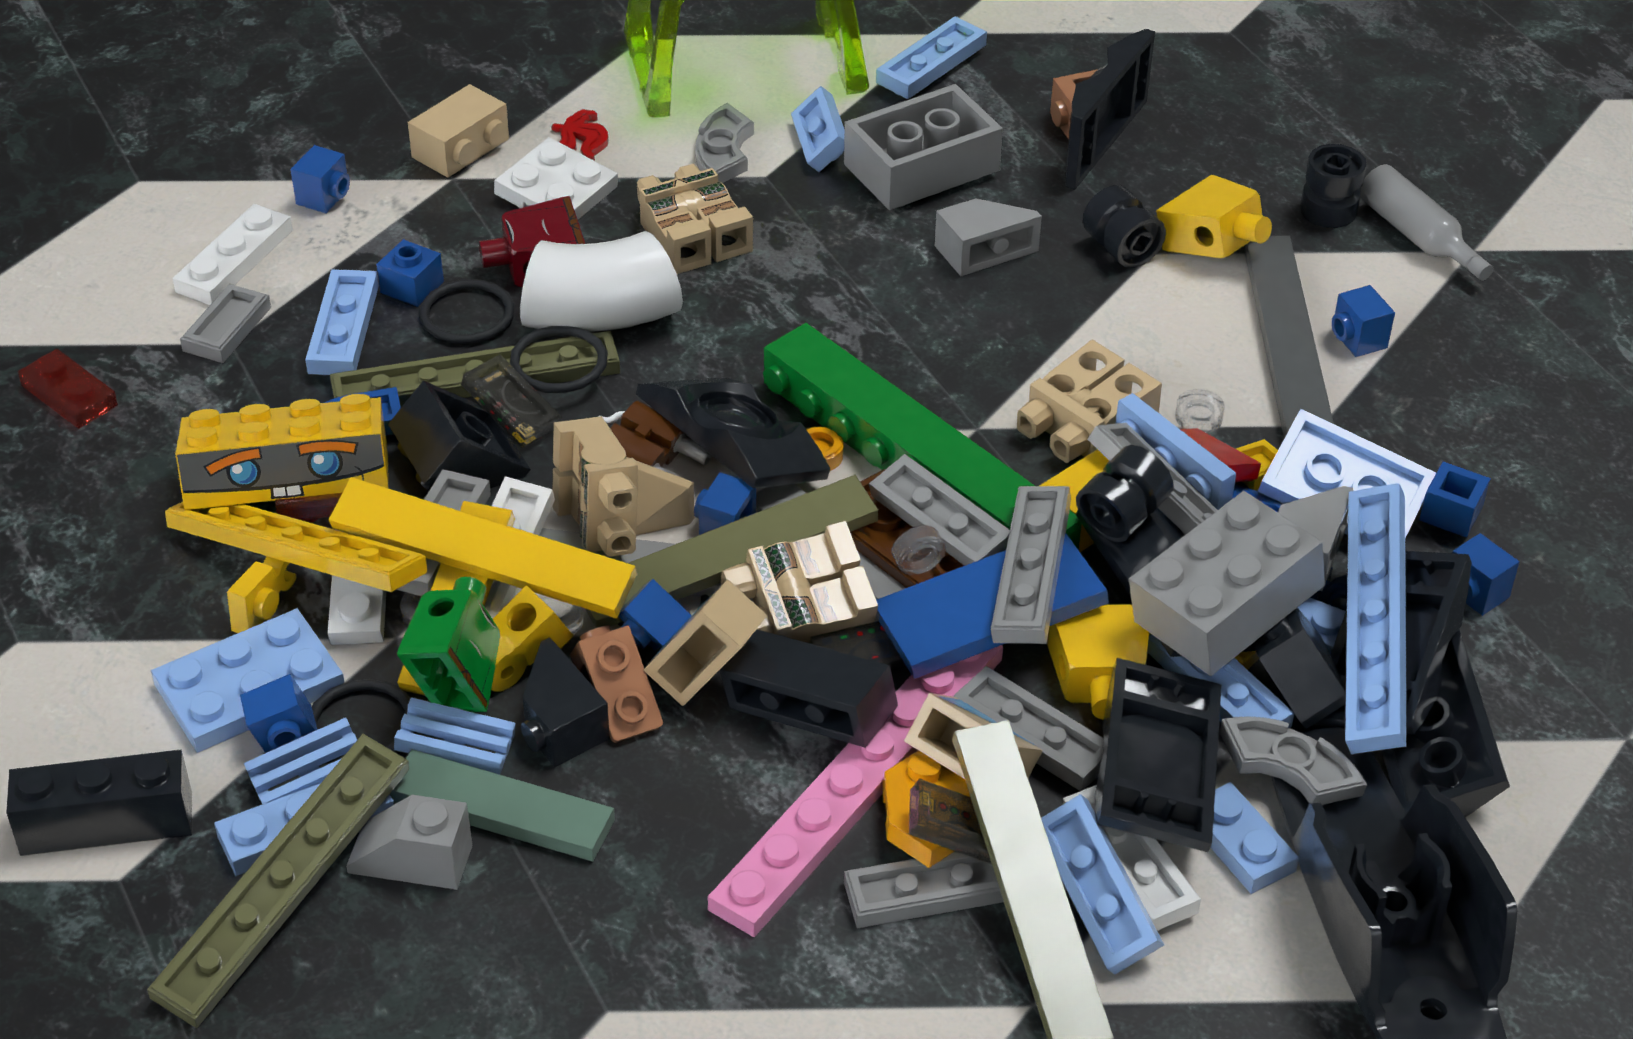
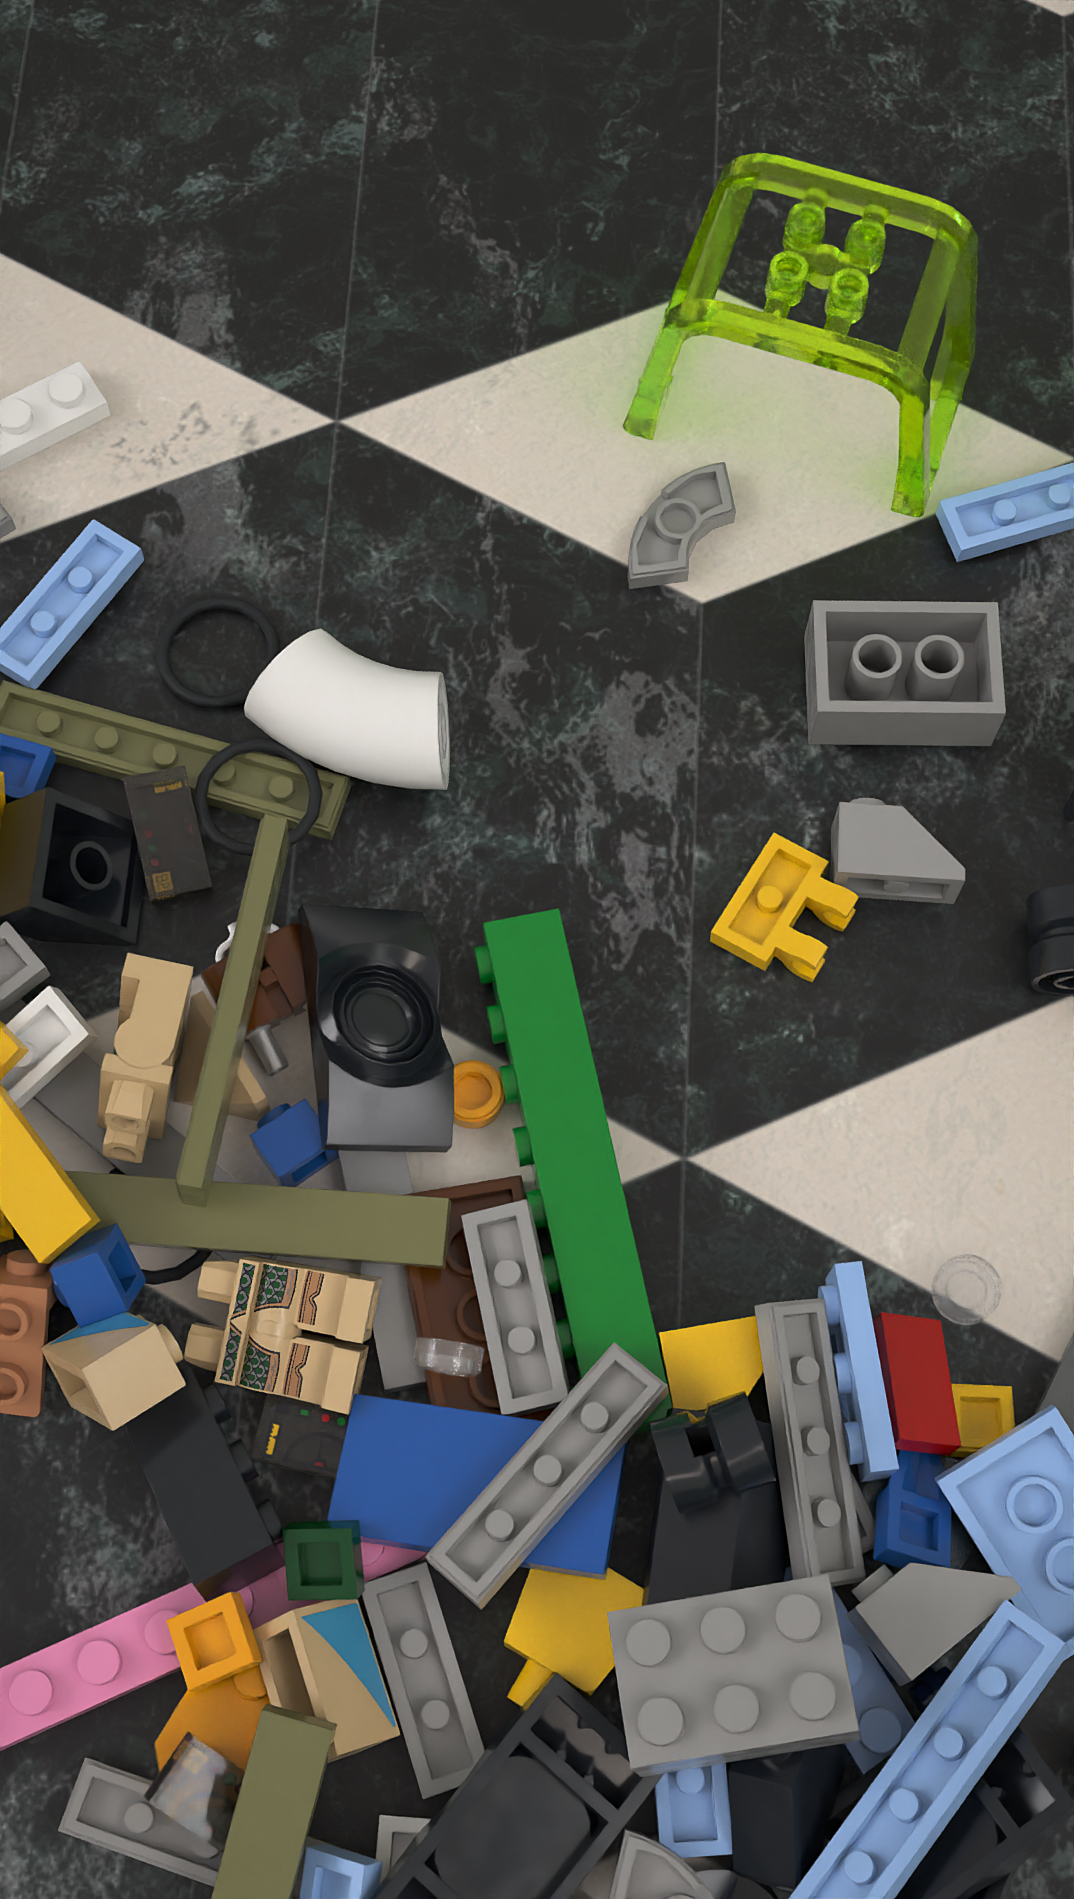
camera: 30 degrees right, 25 degrees up
(320, 179) = (171, 359): blue plate -> none
(410, 272) = (182, 564): blue plate -> none
(458, 130) = (374, 356): tan brick -> none
(524, 229) = (352, 593): dark red torso -> none
(553, 173) = (438, 497): white plate -> none
(593, 135) = (527, 411): red piece -> none
(643, 439) = (233, 1012): none -> olive tile
(694, 214) = (558, 621): tan hips -> none
(819, 129) = (804, 567): light blue plate -> none
(887, 748) = (214, 1641): none -> light orange plate
(923, 673) = (323, 1560): none -> dark green tile
(930, 286) = (770, 901): none -> yellow plate
(1079, 398) = (826, 1210): tan hips -> none

